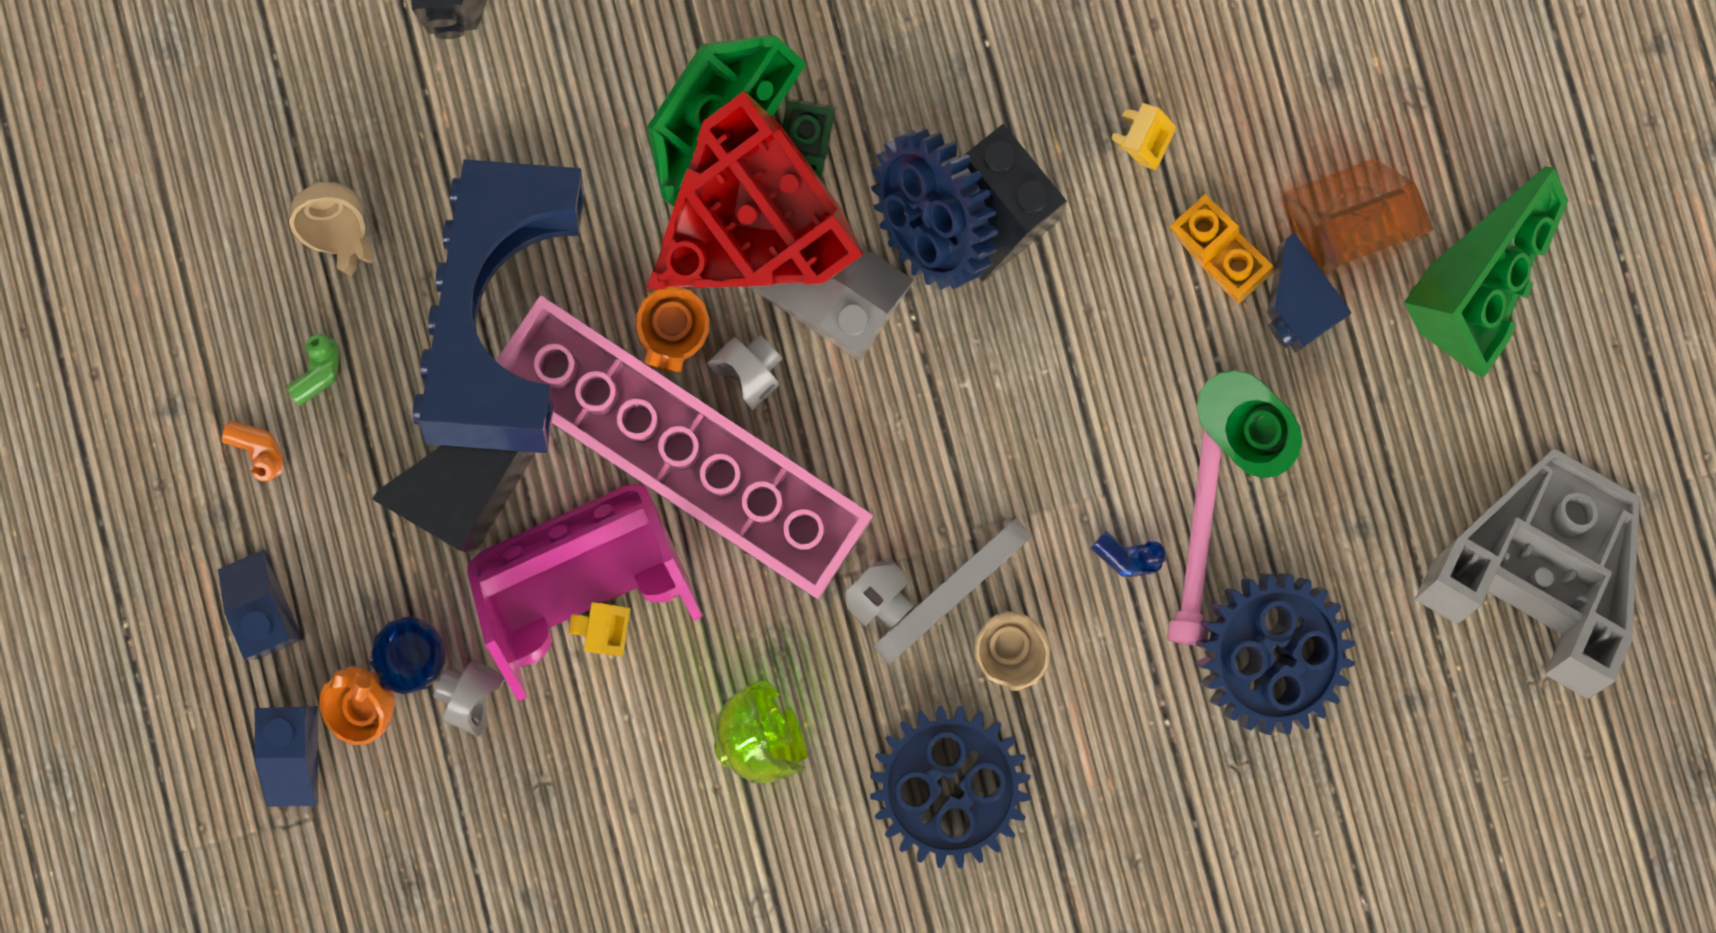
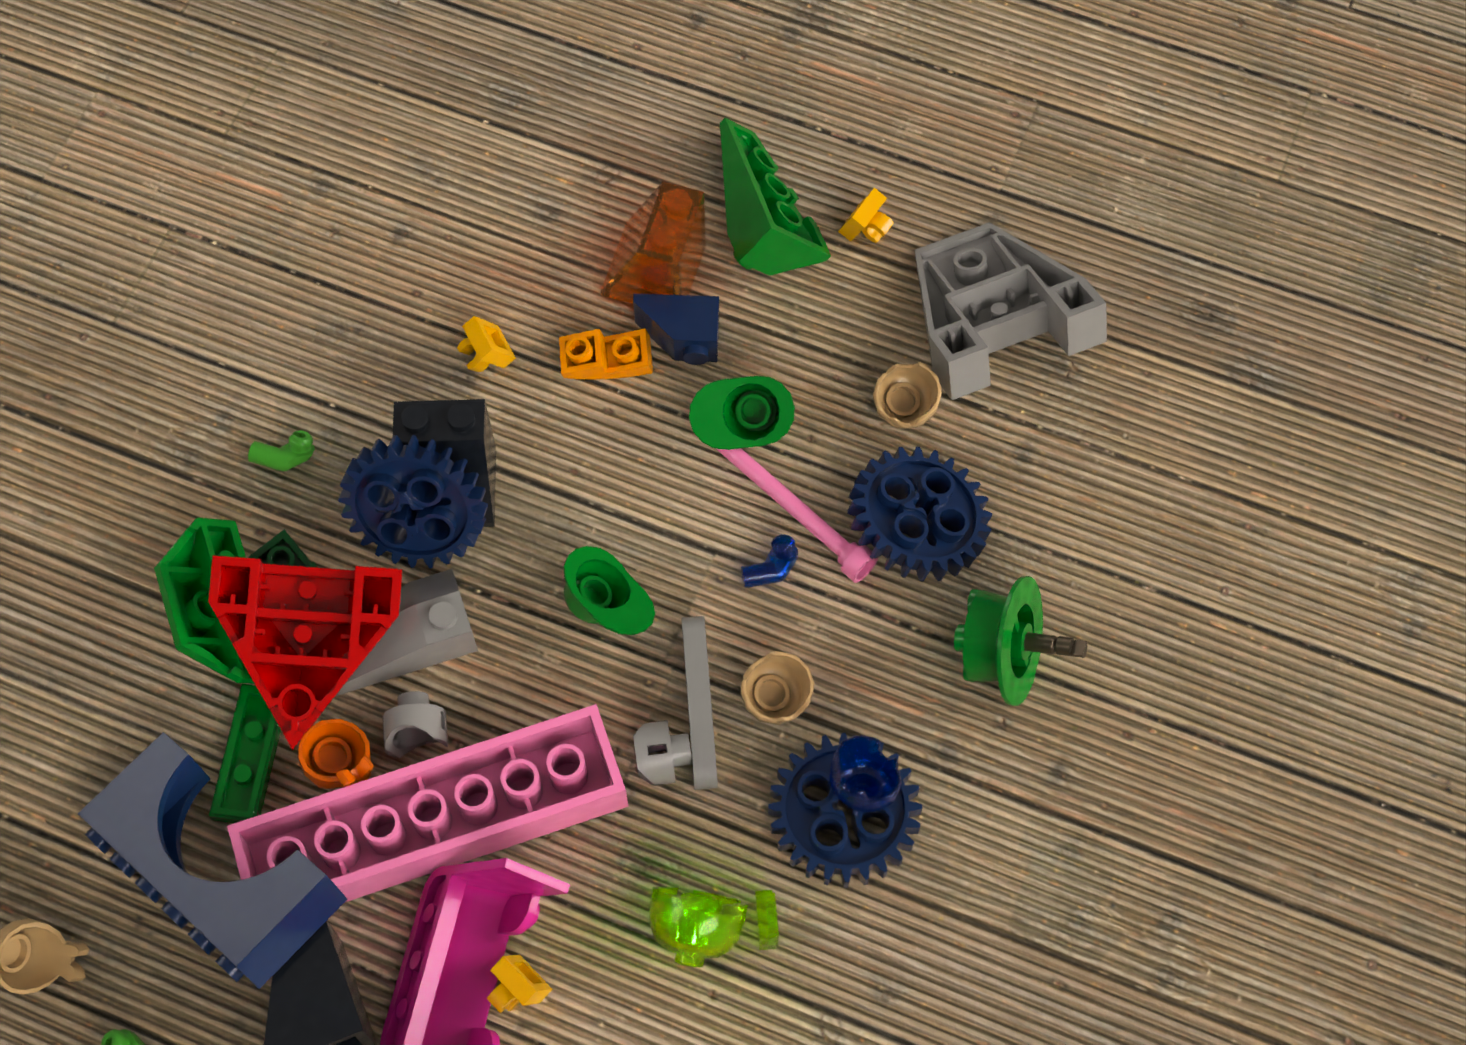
camera: 55 degrees left, 20 degrees down
(613, 252) = (246, 759): none -> green tile
(805, 791) = (766, 919): none -> clear neon green tile
(903, 48) = (285, 457): none -> bright green arm
(979, 792) = (863, 775): none -> clear blue hair
(986, 439) = (605, 593): none -> green piece
(1203, 820) = (1006, 639): none -> green piece
(1386, 557) = (907, 395): none -> tan hair
(1549, 381) = (868, 219): none -> yellow tile

